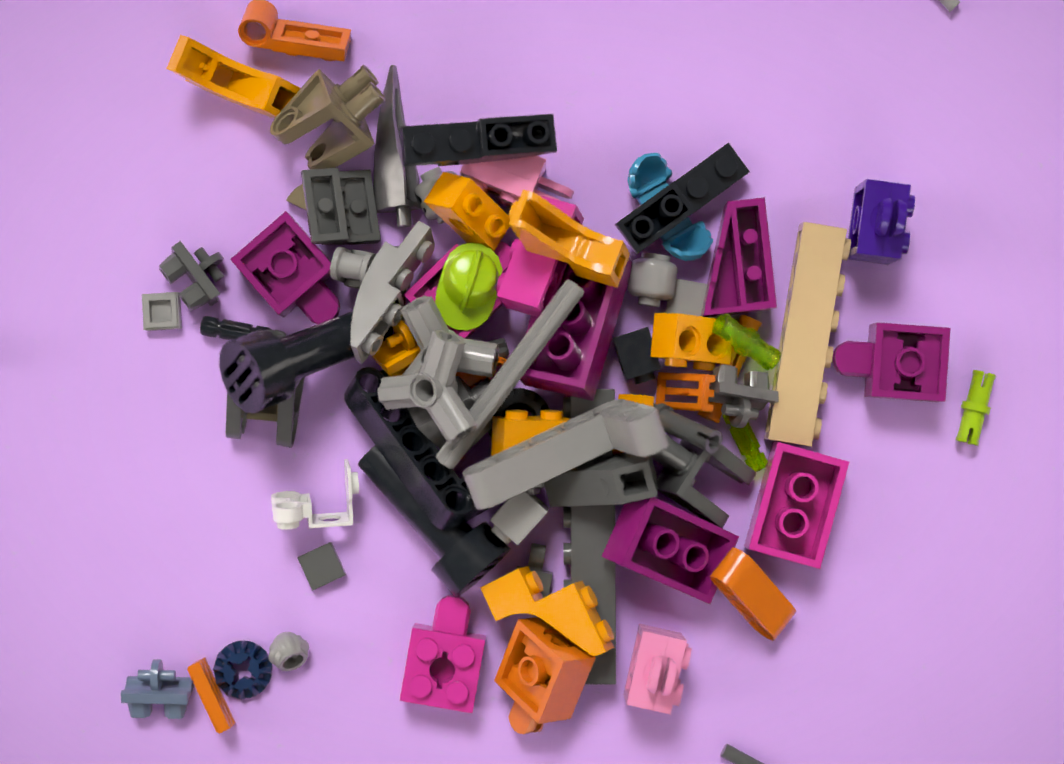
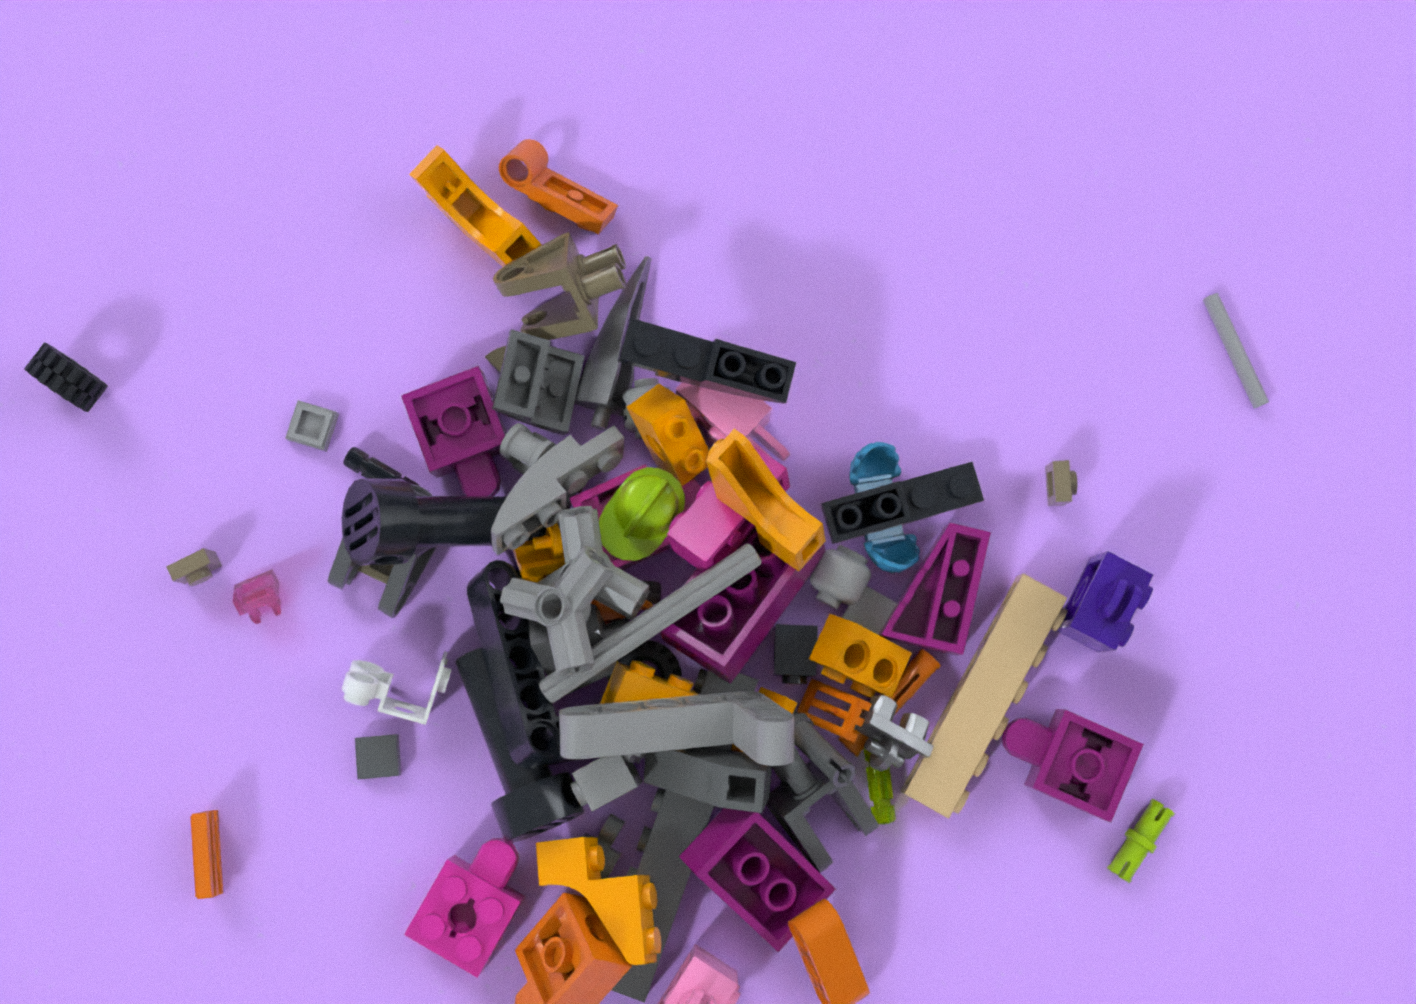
camera: 15 degrees right, 5 degrees down
(110, 465) = (194, 568): none -> dark tan plate
(157, 687) = (152, 824): sand blue hips -> none
(169, 468) = (256, 593): none -> clear pink tile
(182, 263) = (351, 382): dark grey hips -> none
(259, 666) = (270, 841): dark blue gear -> none
(288, 651) = (307, 836): light grey piece -> none
(746, 341) = (917, 680): clear neon green pin -> none
(796, 504) = (910, 877): dark pink brick -> none
(808, 134) = (1060, 483): none -> dark tan plate

